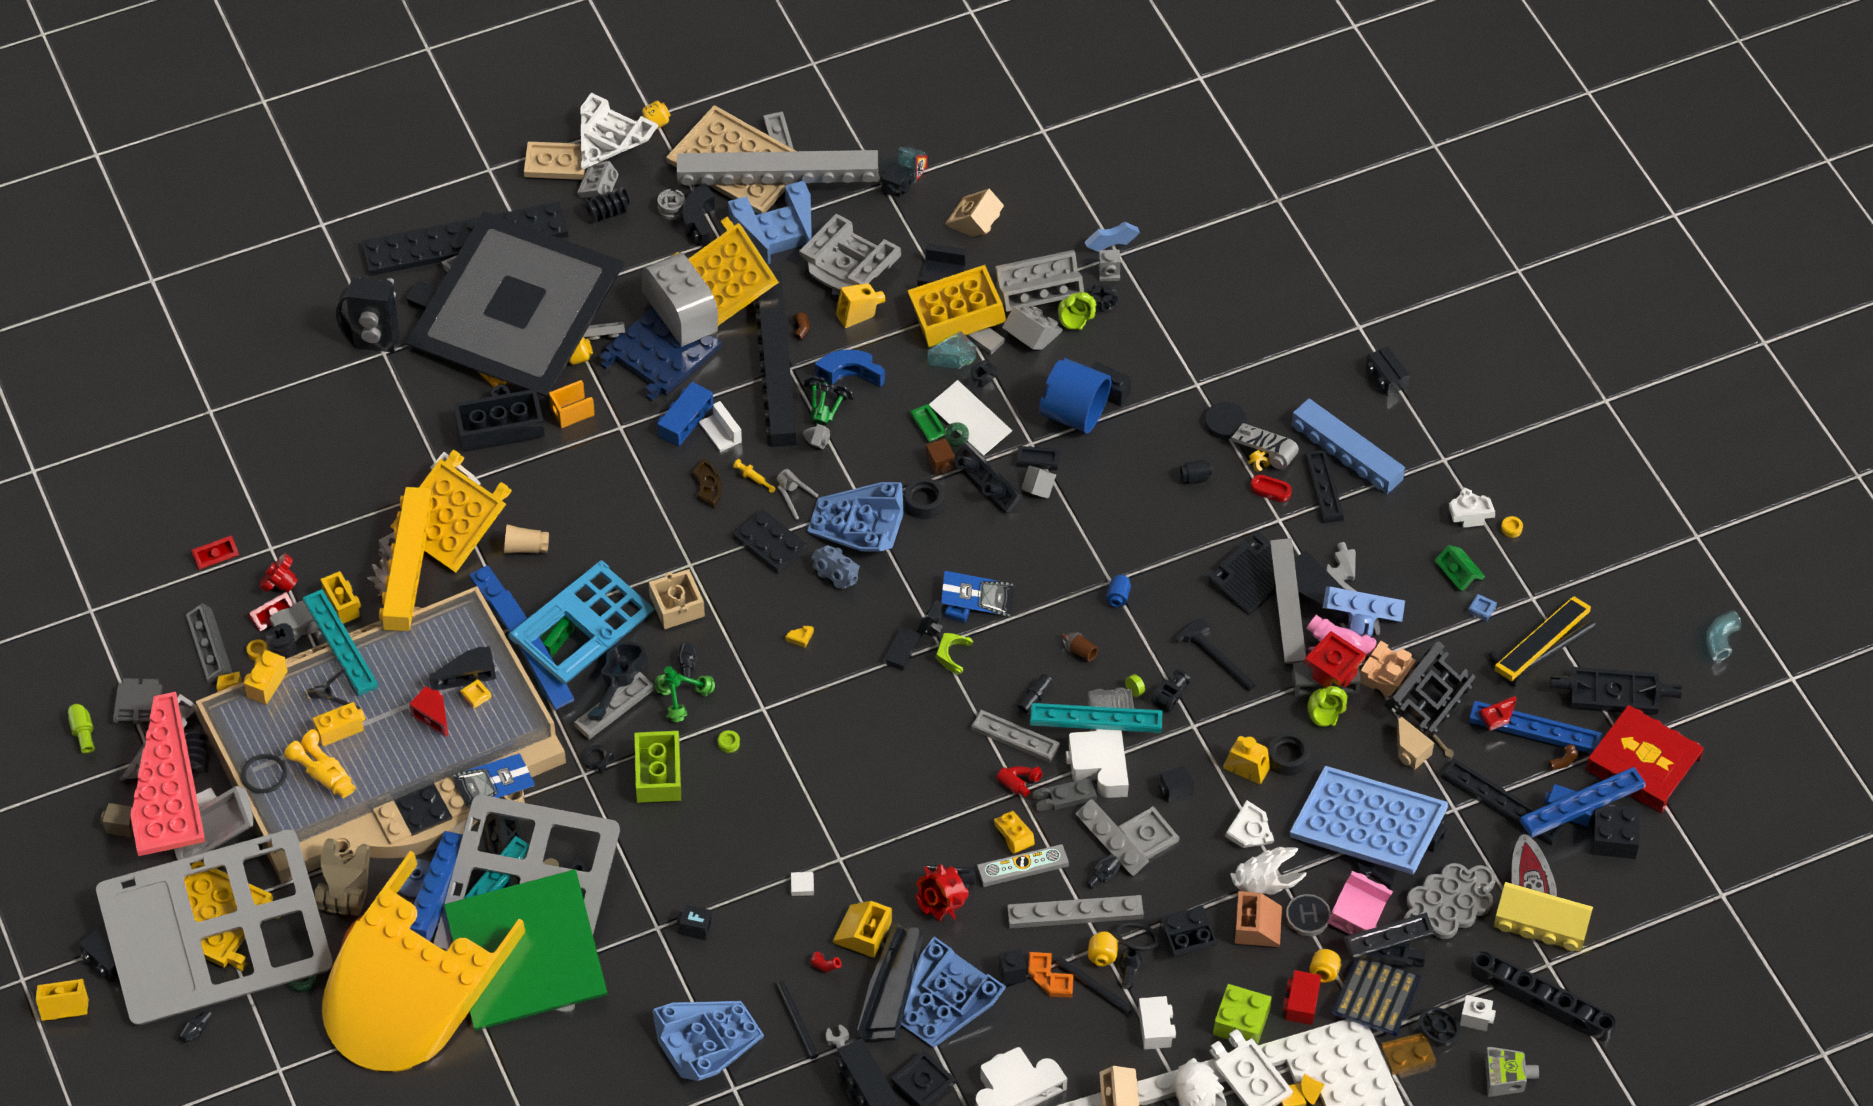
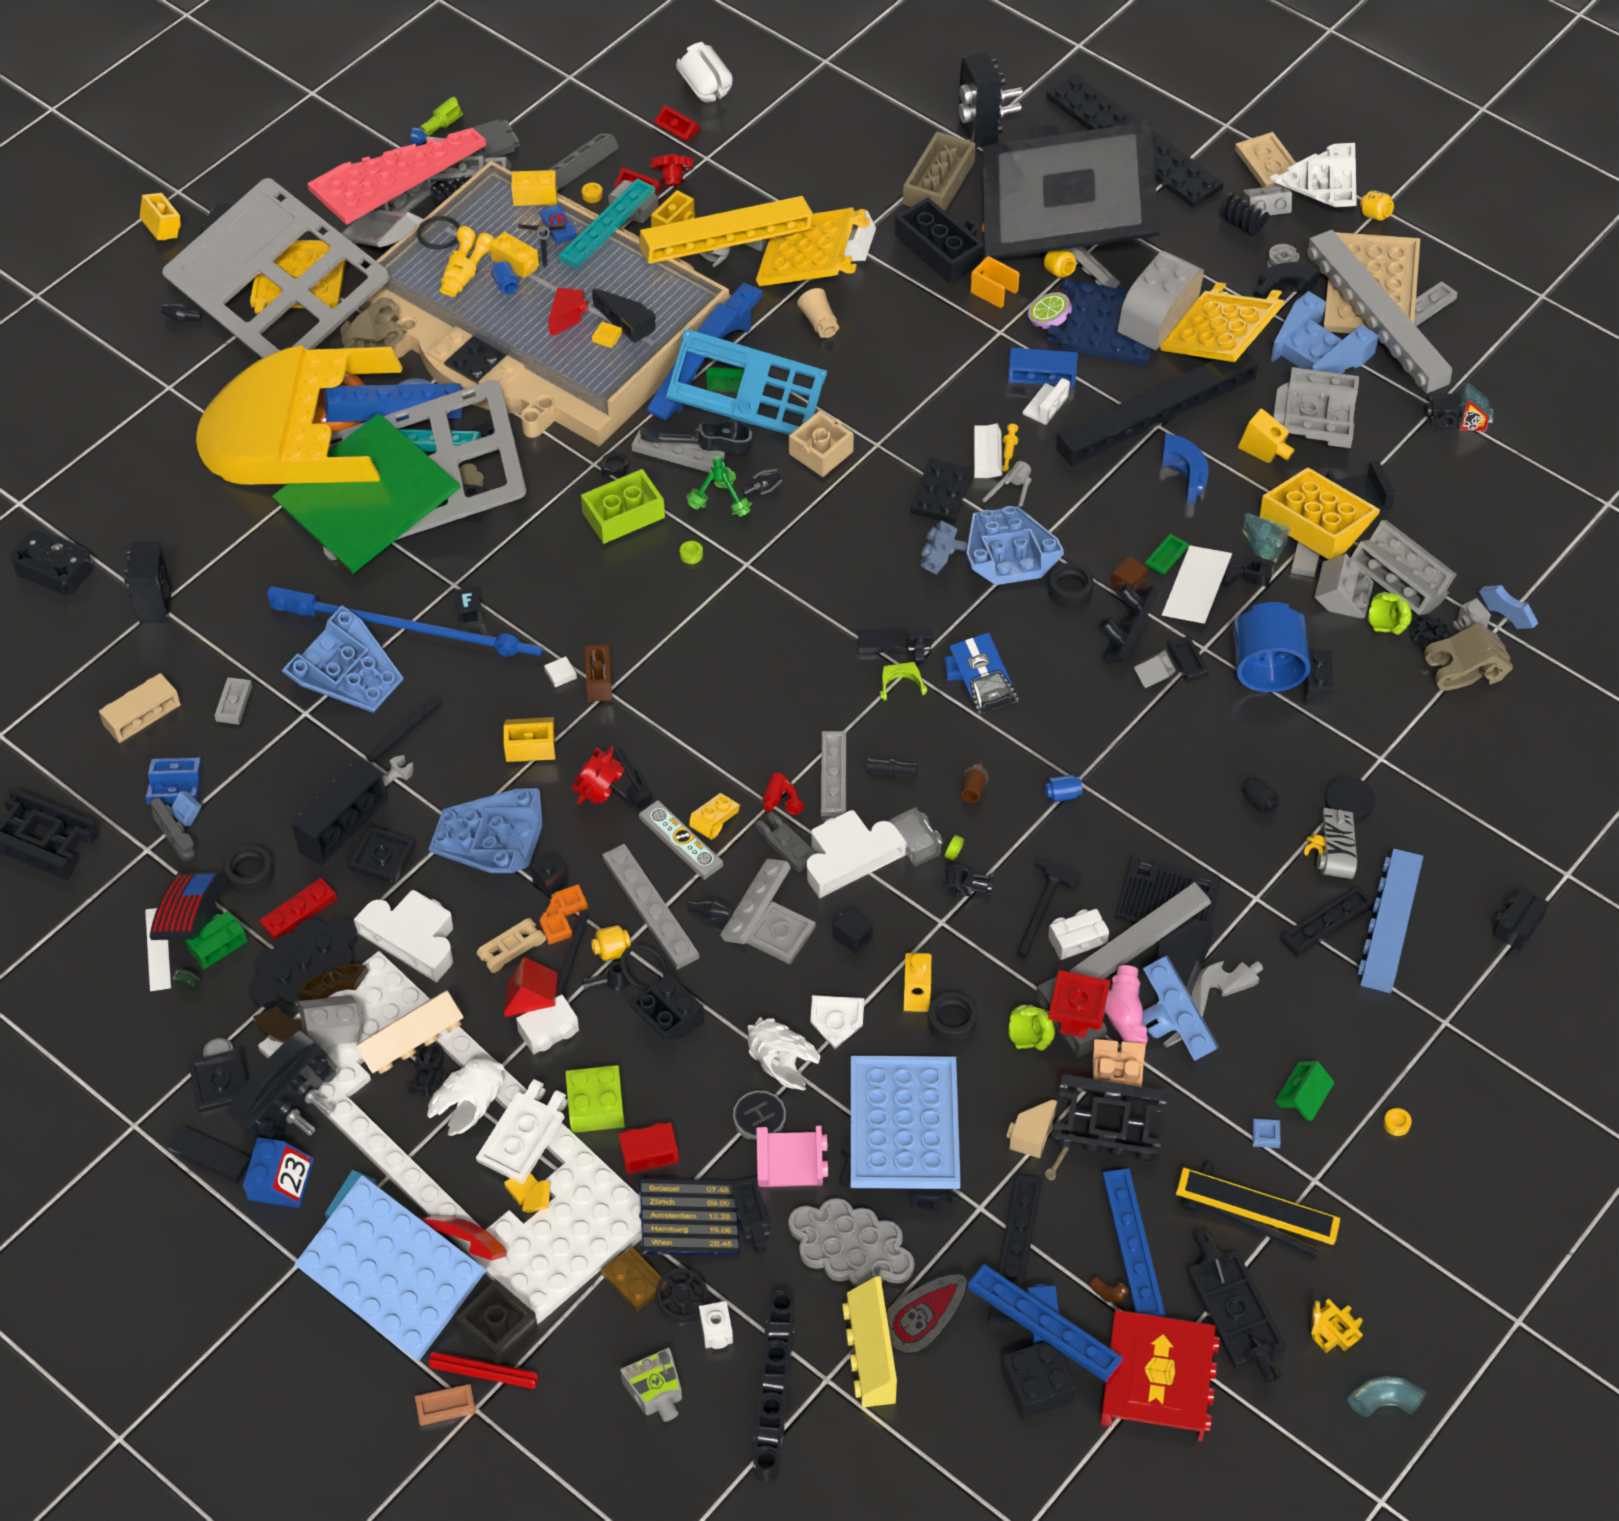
camera: 65 degrees right, 0 degrees up
(93, 755) = (419, 136): none -> blue hinge
(177, 502) = (705, 72): none -> white cylinder
(282, 640) = (595, 194): black piece -> none
(310, 677) = (556, 216): none -> blue tile
(361, 741) = (505, 277): none -> blue brick
(420, 386) = (939, 171): none -> dark tan brick
(494, 779) = (533, 393): sticker -> none
(620, 1042) = (306, 604): none -> blue bar
(627, 381) = (1049, 310): none -> tile
(709, 483) = (985, 414): dark brown tile -> none
(749, 492) = (987, 451): none -> white piece
(800, 636) = (846, 557): yellow tile -> none
(803, 325) = (1215, 412): reddish brown arm -> none
(817, 436) = (1084, 474): light grey plate -> none
(821, 413) = (1114, 465): plant -> none
(825, 966) = (475, 719): red arm -> none
(828, 853) = (598, 673): none -> reddish brown brick
(890, 985) = (474, 781): black piece -> none
(953, 427) = (1165, 574): clear green piece -> none
(975, 213) = (1452, 488): tan slope -> none
(1063, 1021) = (511, 944): none -> tan plate
(1096, 717) = (883, 824): teal tile -> none
(1120, 1021) = (530, 988): none -> red slope
(1146, 283) = (1468, 658): none -> dark tan piece
(1257, 641) = (1078, 933): none -> white brick
(1257, 920) = (720, 1066): nougat slope -> none
(1270, 488) = (1290, 873): red tile -> none
(1325, 963) = (699, 1153): yellow head -> none
(1388, 935) = (762, 1195): black tile -> none
(1471, 509) = (1390, 1069): white plate -> none
(1498, 714) = (1124, 1198): red tile -> none
(1654, 644) = (1331, 1329): none -> yellow piece

